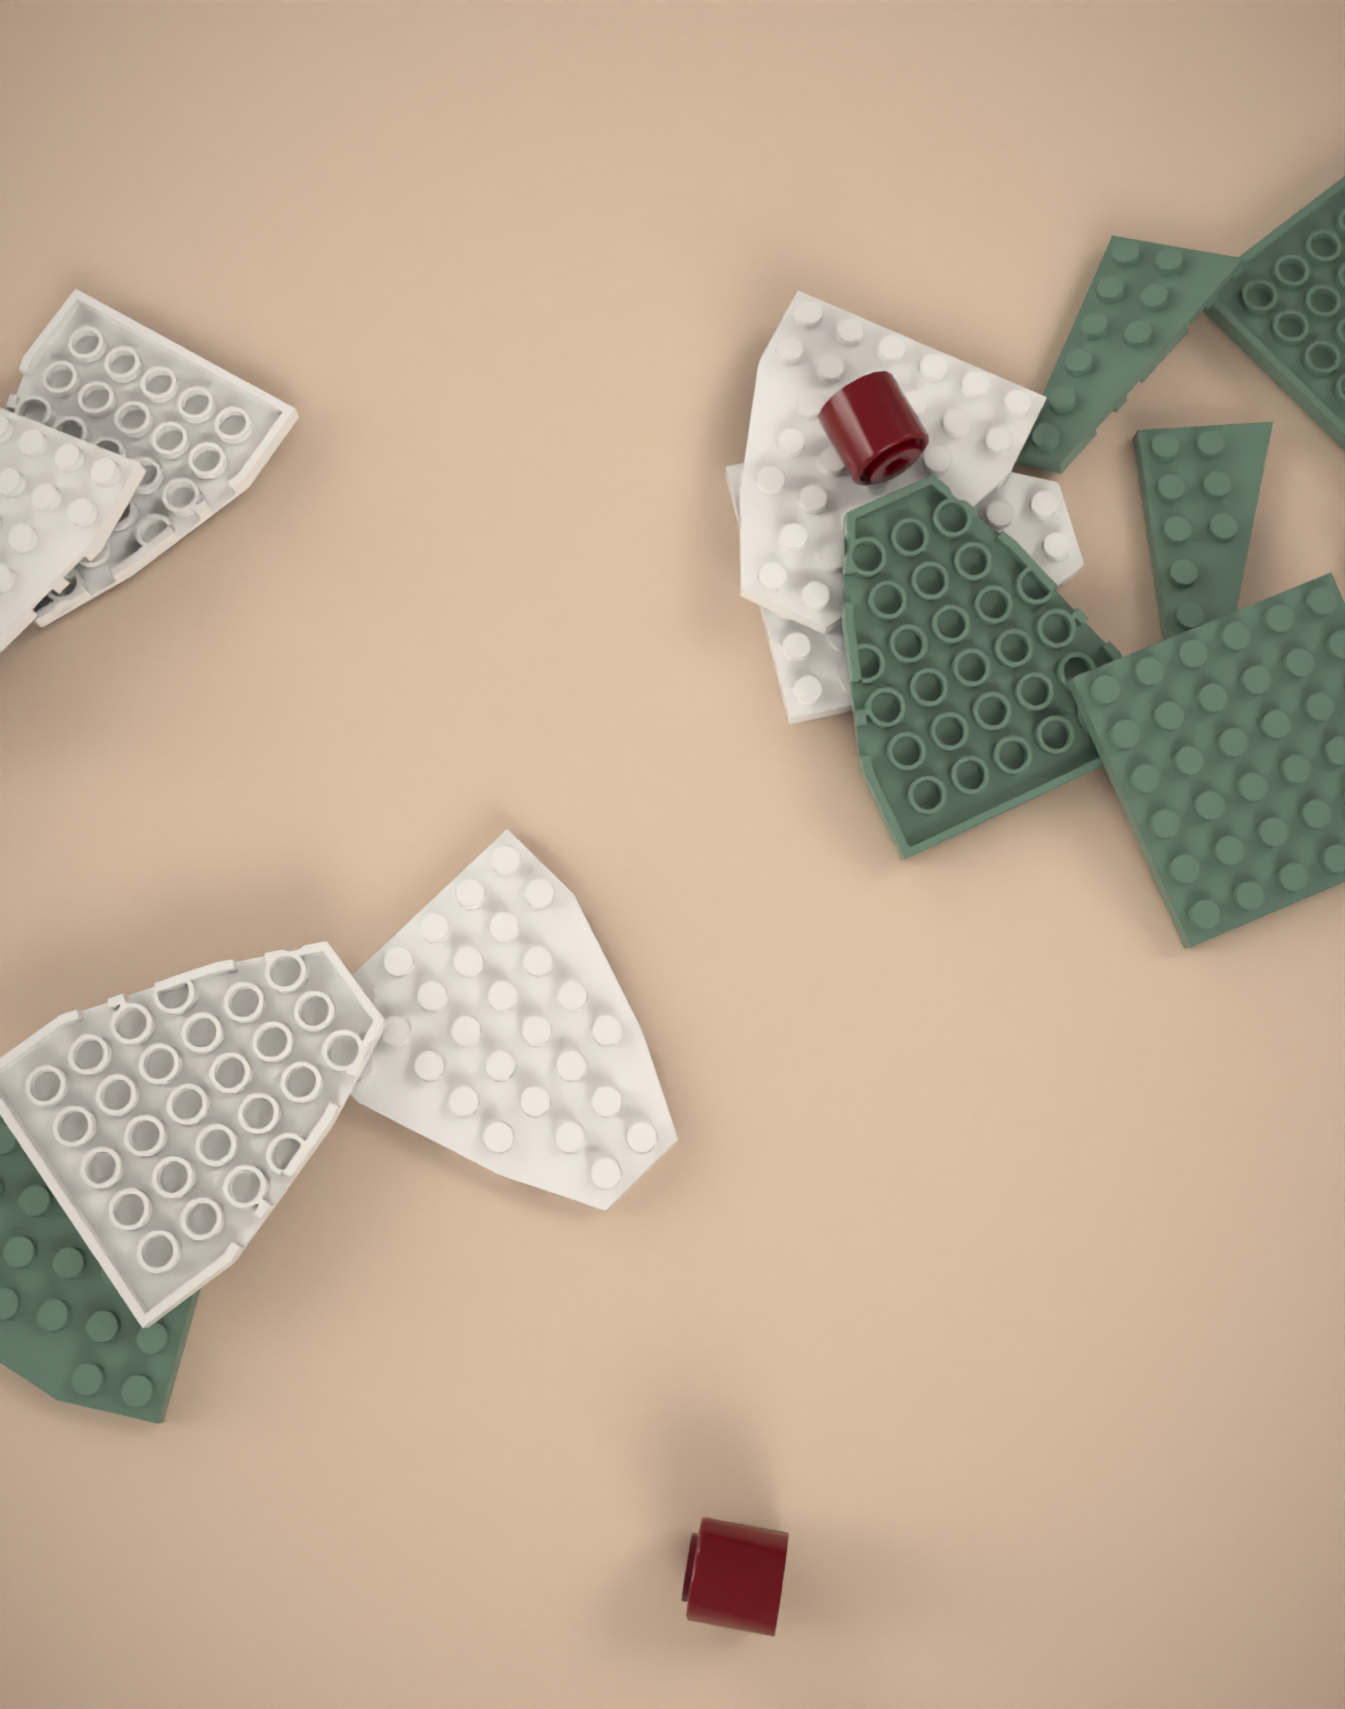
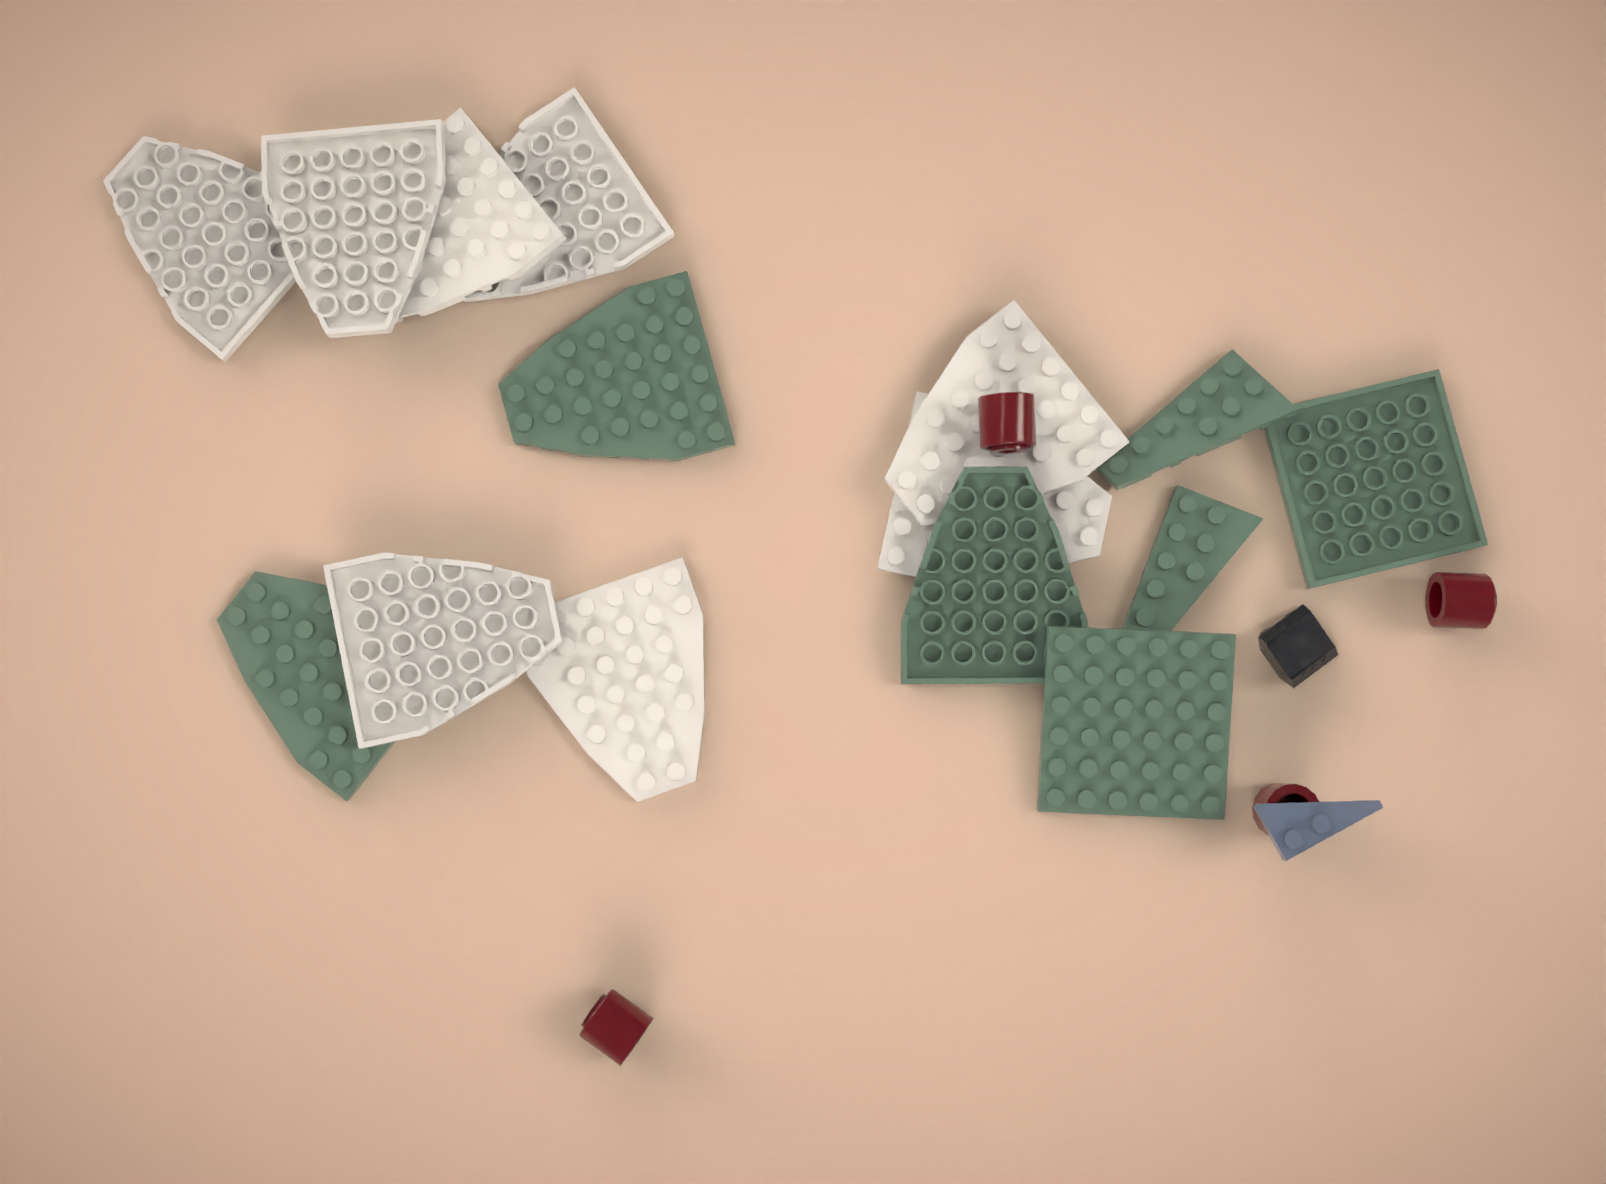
camera: 20 degrees right, 10 degrees up
(313, 635) = (623, 381): none -> sand green wing

